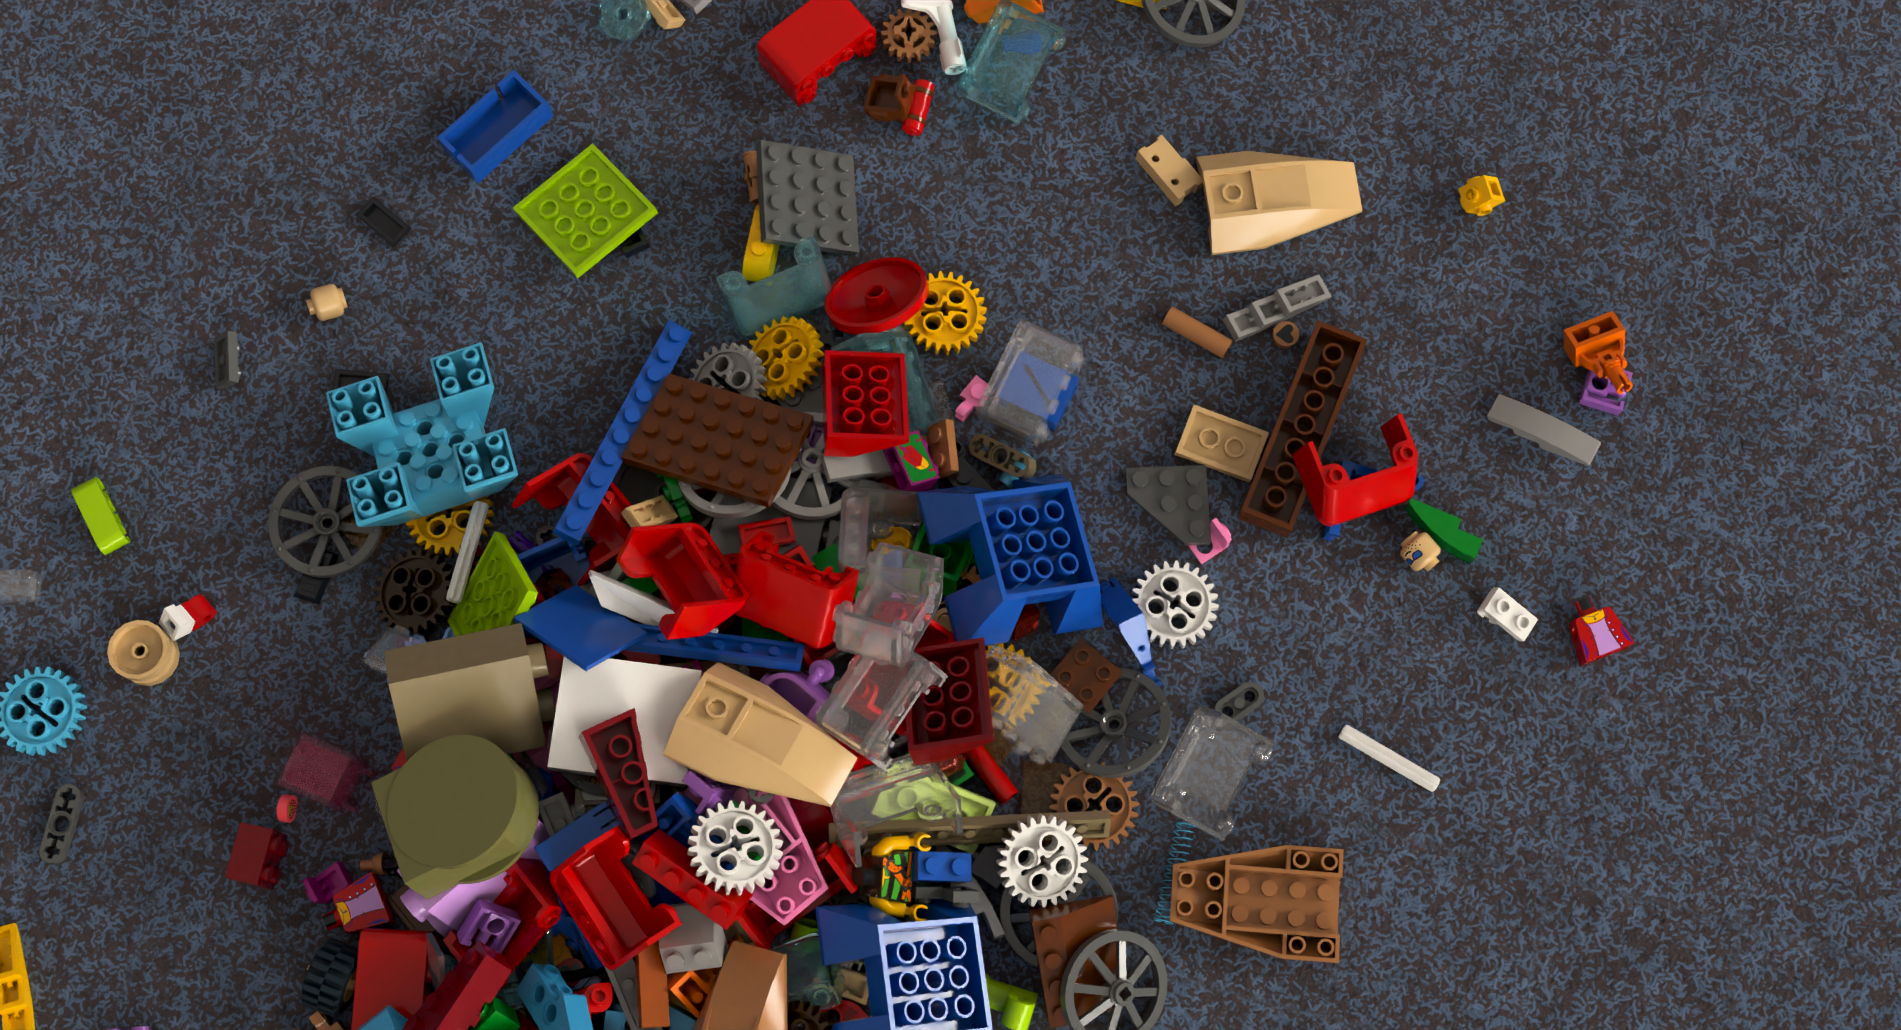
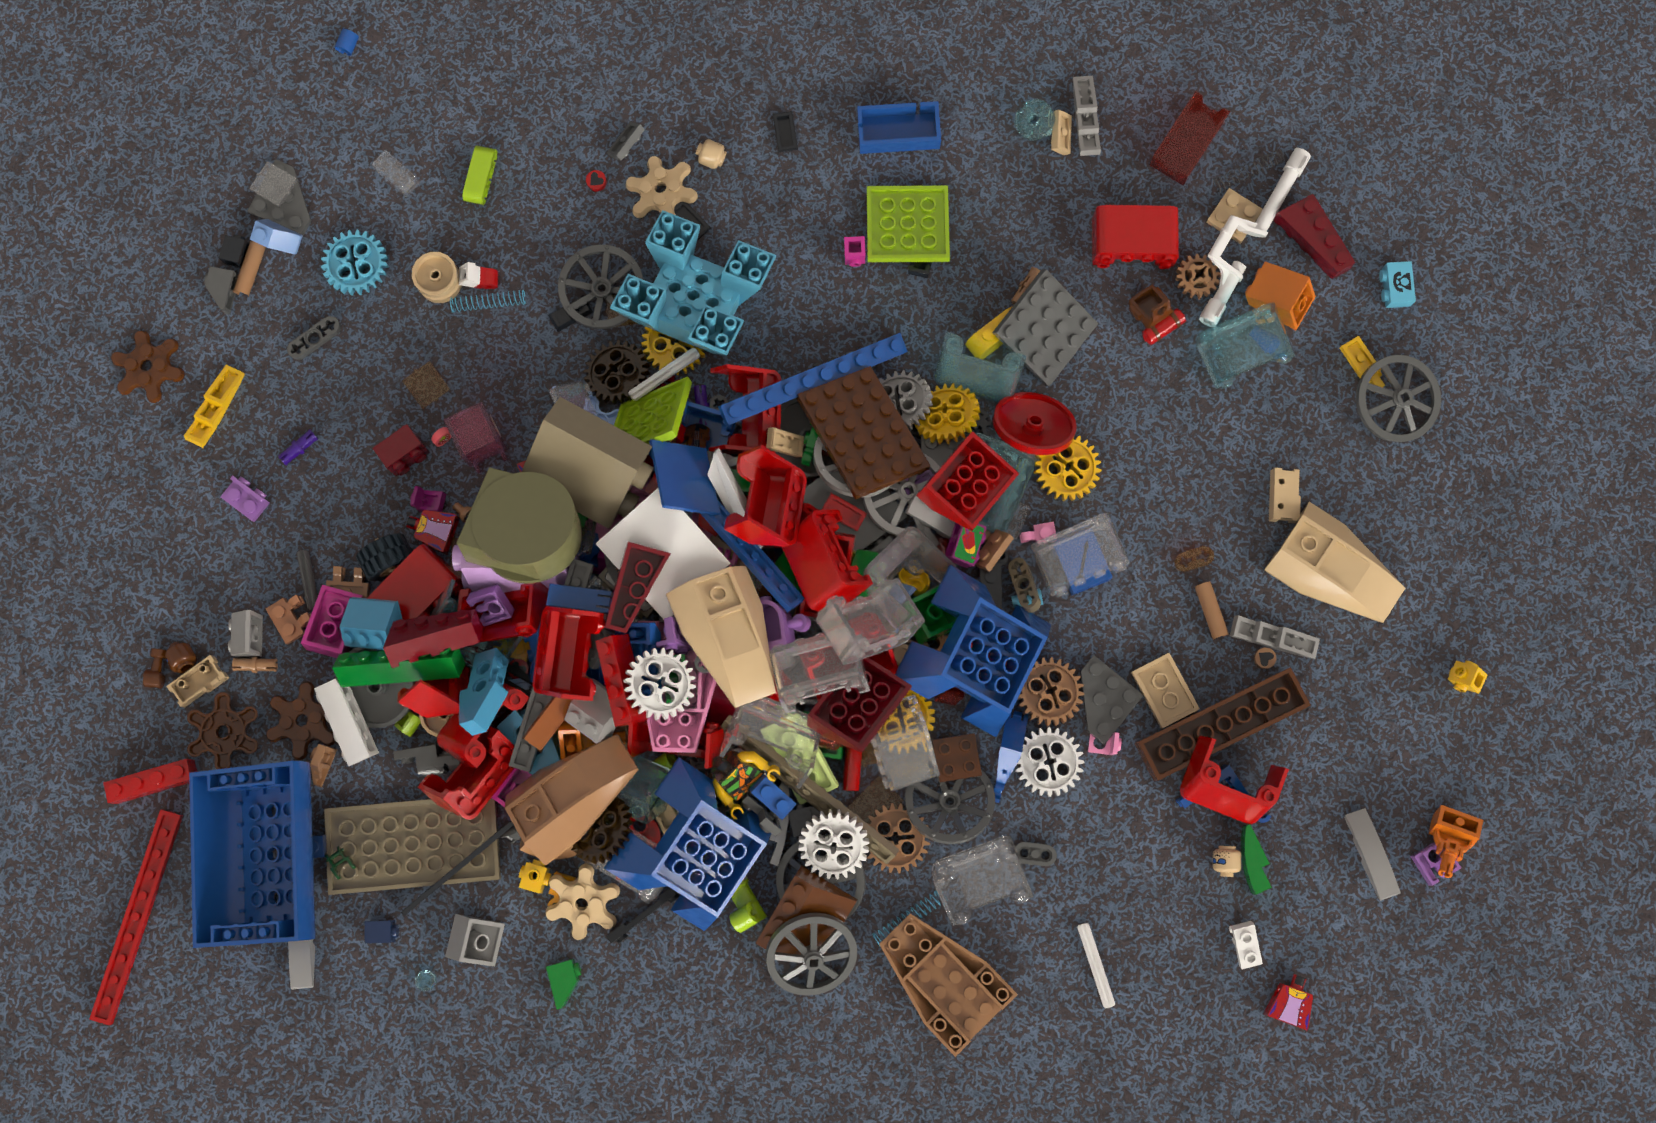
camera: 45 degrees right, 5 degrees up
(140, 949) = (297, 447): none -> dark purple pin
(215, 630) = (452, 310): none -> medium azure piece
(224, 771) = (426, 385): none -> clear orange piece
(229, 423) = (596, 180): none -> red tile
(289, 369) = (658, 176): none -> tan plate
(555, 278) = (854, 251): none -> dark pink brick
(1124, 517) = (1067, 683): none -> medium nougat gear
(1143, 302) = (1193, 554): none -> clear orange beam

